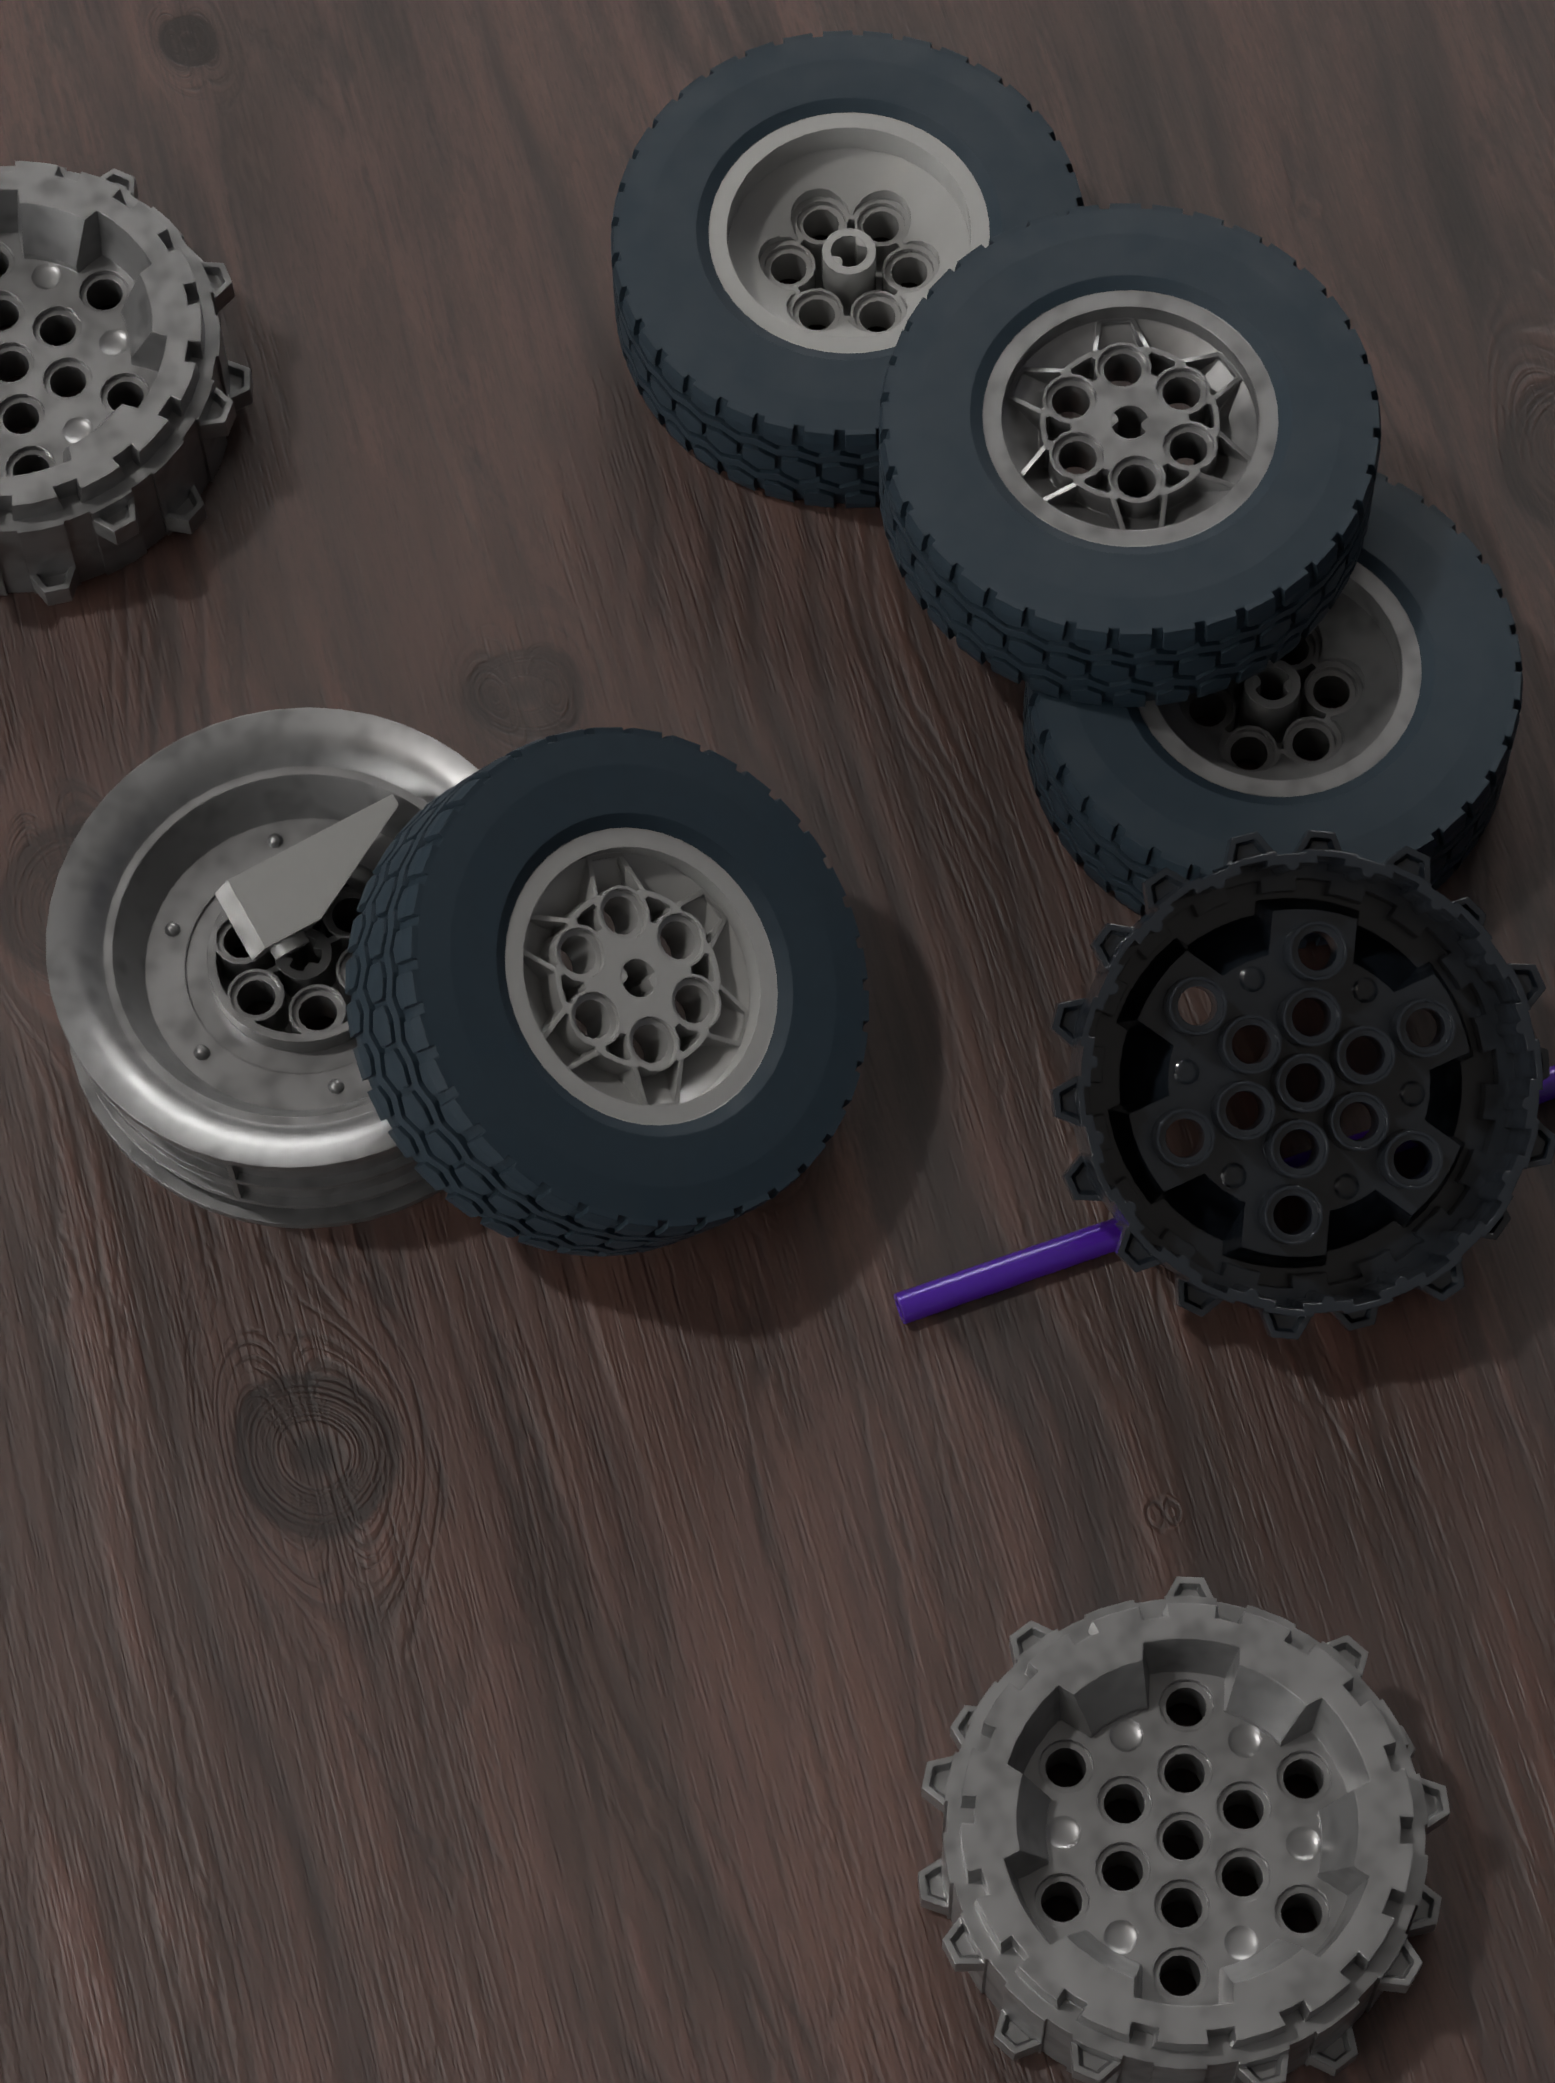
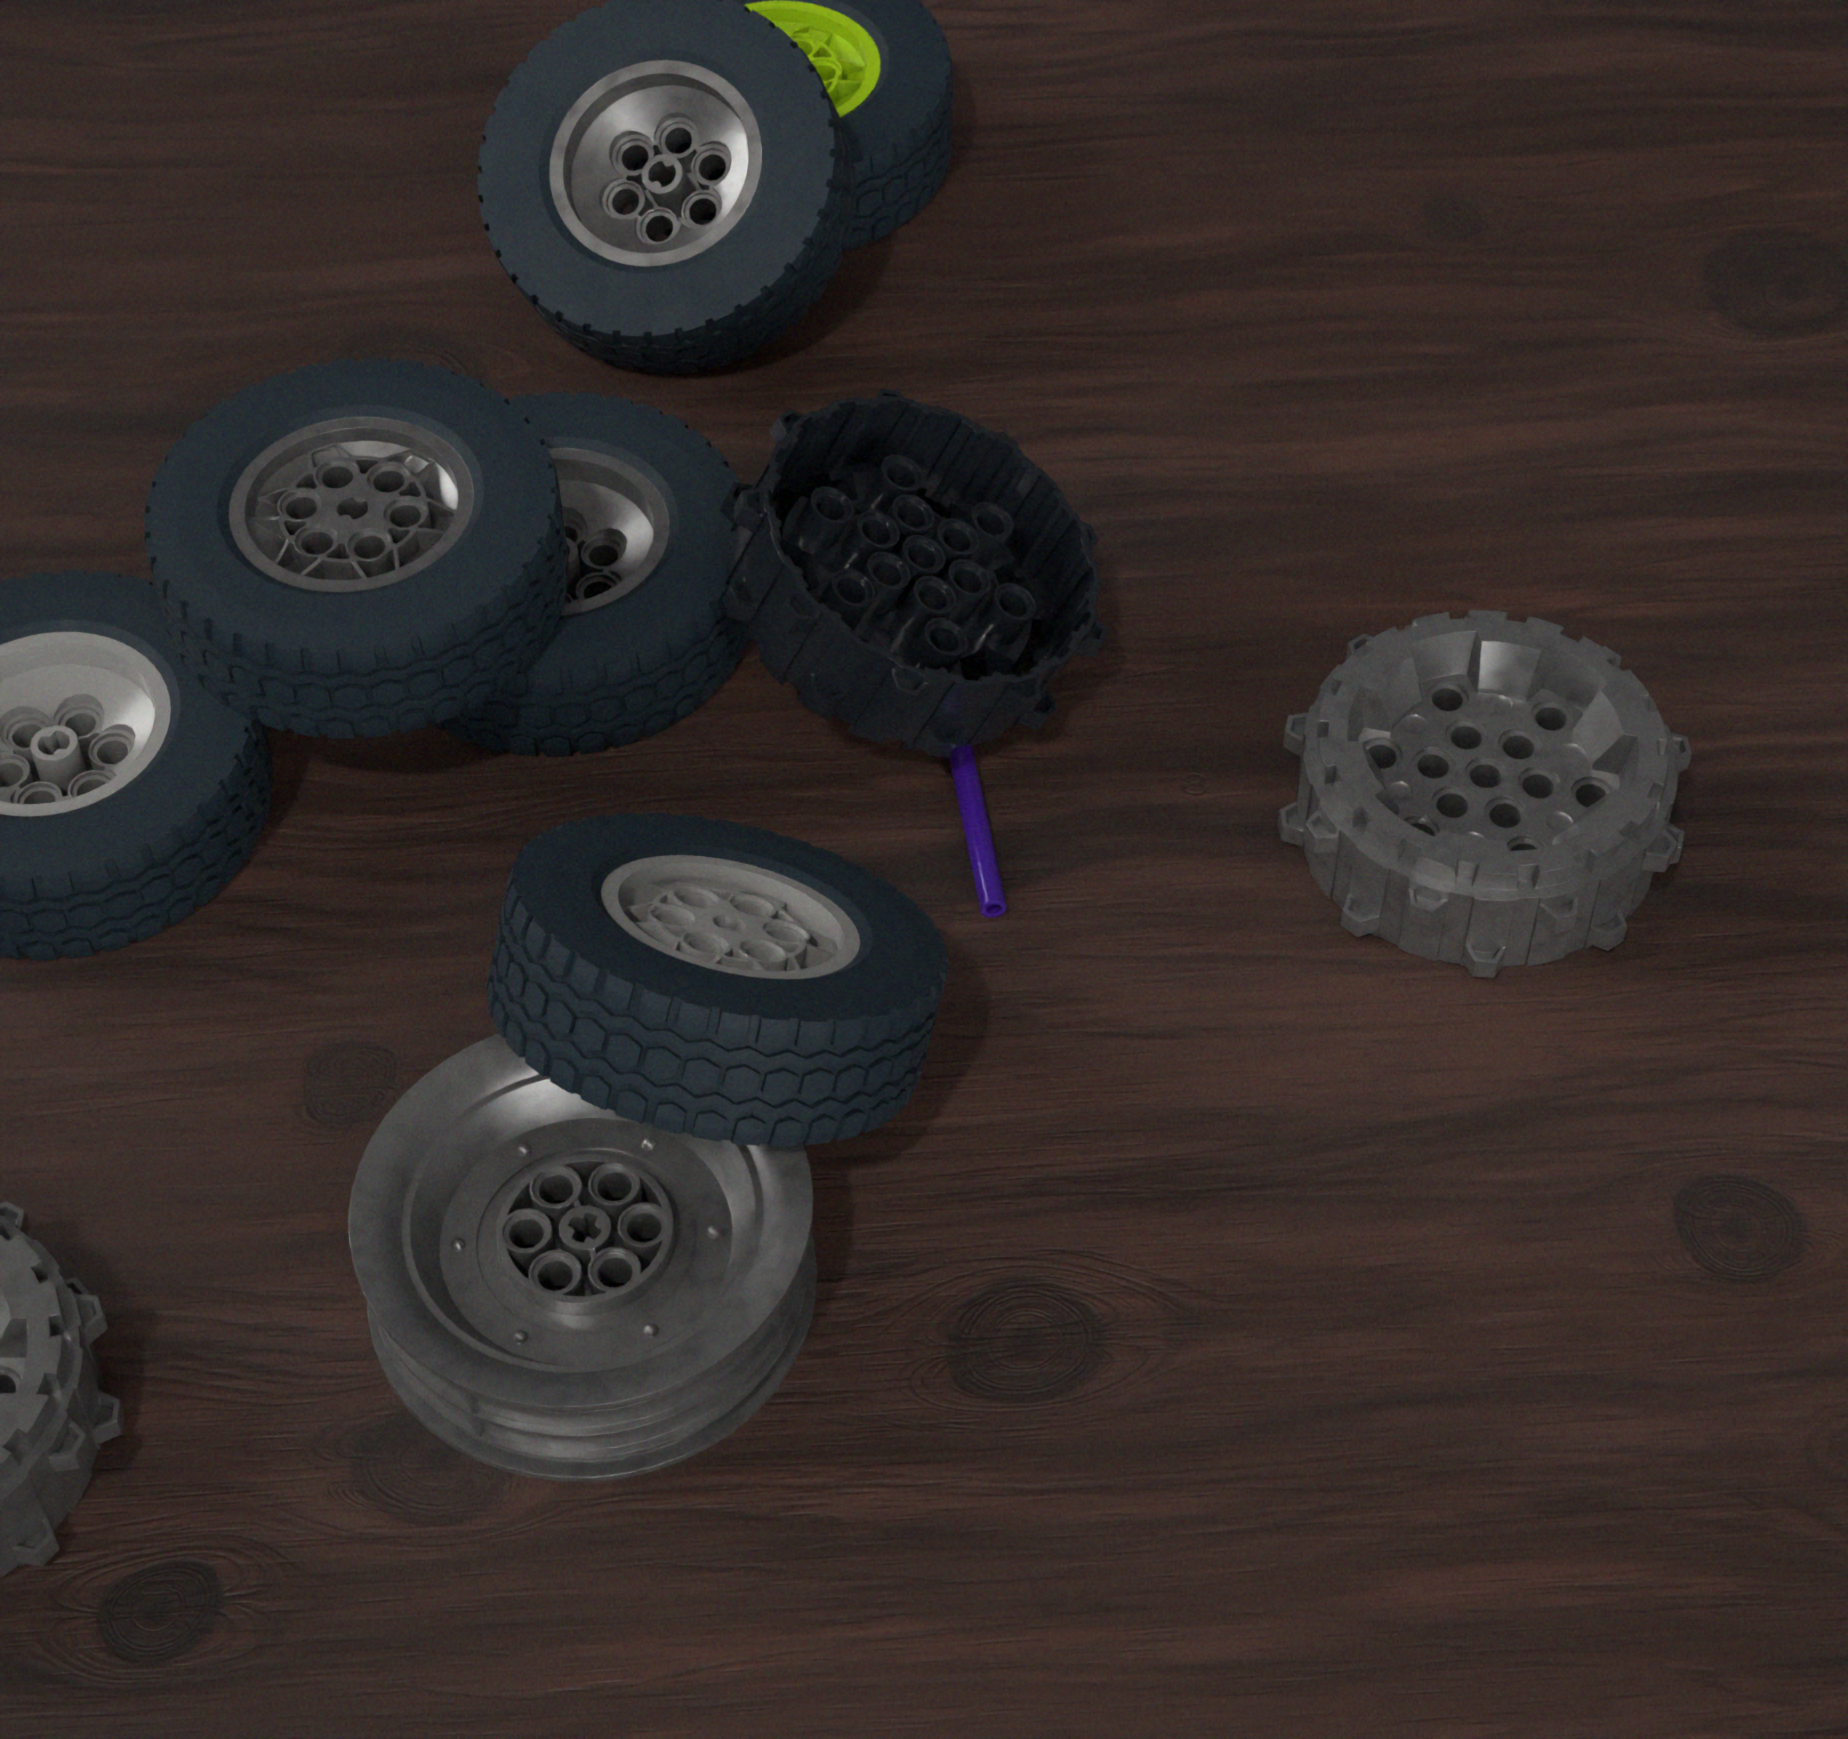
camera: 80 degrees left, 15 degrees down
(292, 890) = (529, 1193): light grey slope -> none

